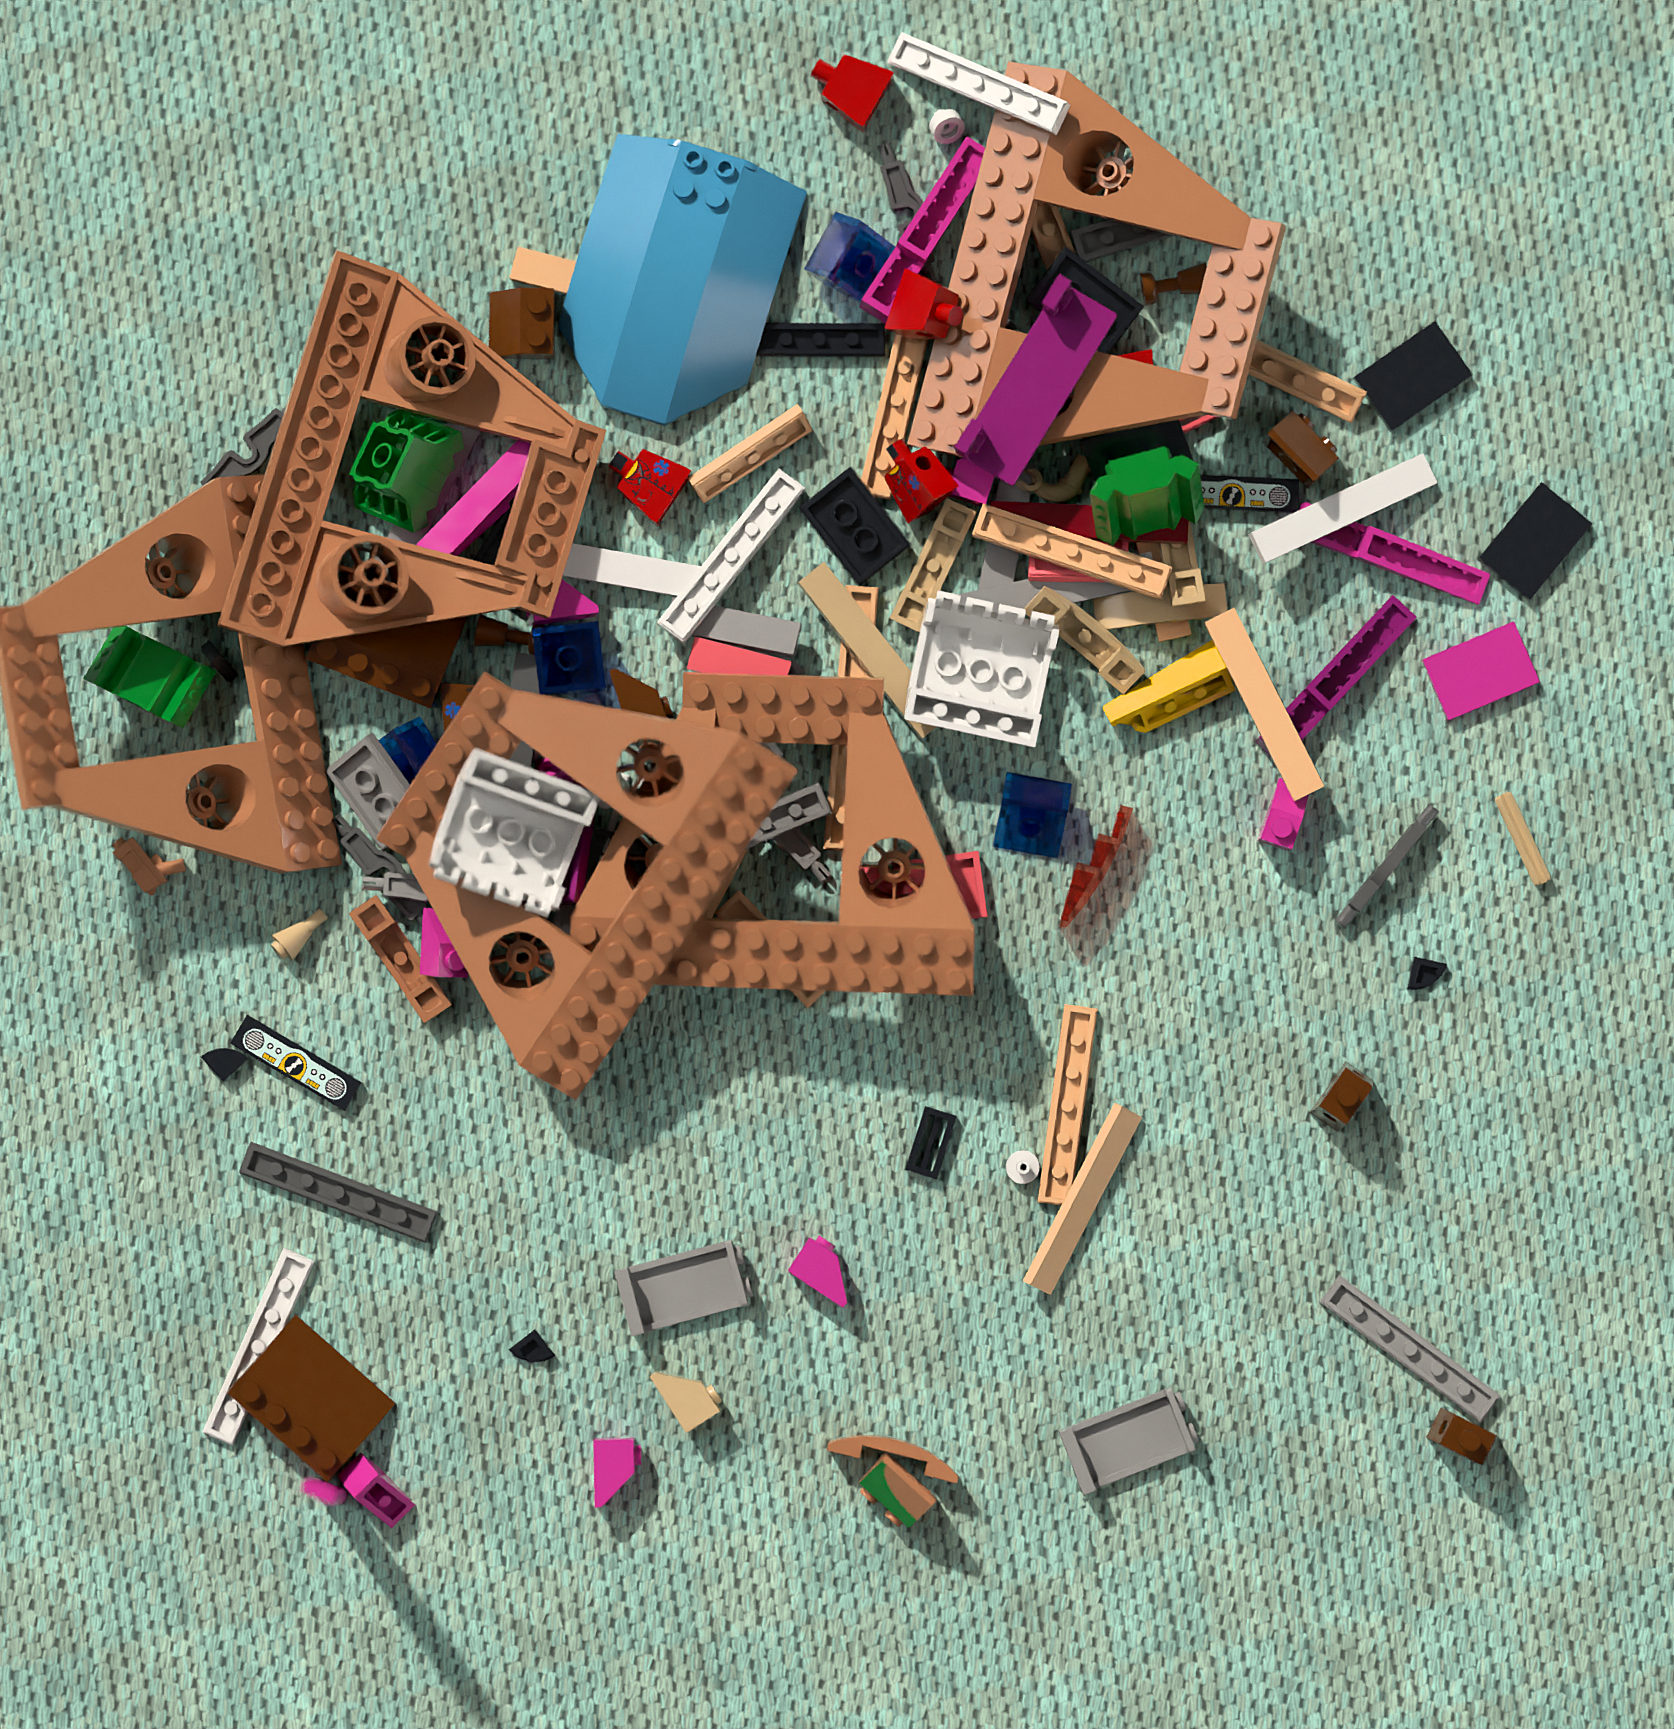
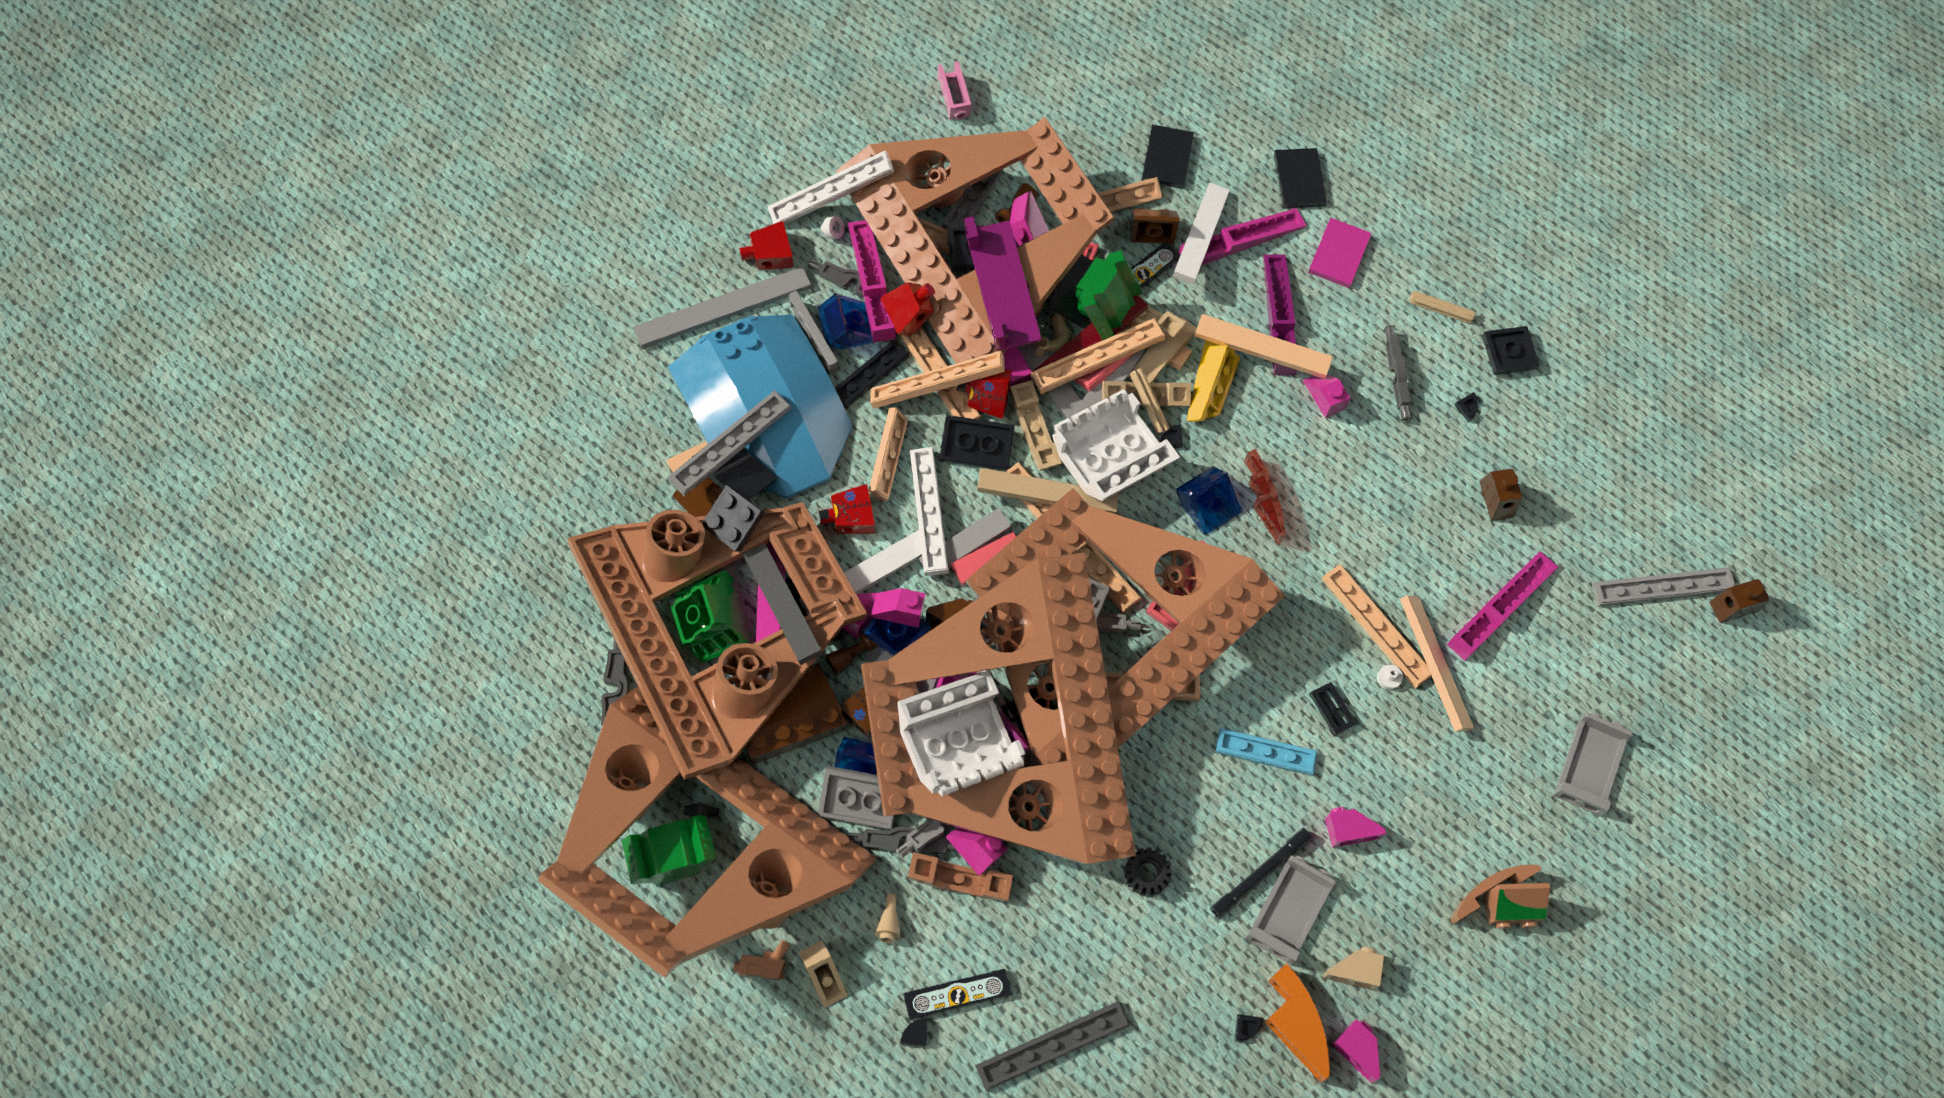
camera: 45 degrees left, 20 degrees down
(189, 926) = (823, 973): none -> tan slope
(477, 528) = (783, 604): none -> dark grey tile
(512, 388) = (733, 518): none -> plate
(566, 329) = (744, 475): none -> black tile
(578, 1143) = (1148, 887): none -> black tyre
(580, 1390) = (1299, 1023): none -> orange slope
(584, 301) = (729, 443): none -> light grey tile
(588, 639) = (899, 606): none -> dark pink slope
(638, 1223) = (1231, 899): none -> black piece
(739, 114) = (721, 307): none -> light grey tile
(804, 237) = (813, 333): none -> light grey tile
(819, 1120) = (1266, 751): none -> medium azure tile
(872, 422) = (937, 379): none -> light nougat tile
(1068, 710) = (1174, 436): none -> black tile
(1080, 650) = (1149, 401): none -> tan axle
(1160, 317) = (1026, 219): none -> dark pink slope
(1220, 1207) = (1502, 605): none -> dark pink slope
(1248, 74) = (954, 92): none -> bright pink window
(1539, 956) = (1510, 350): none -> black plate

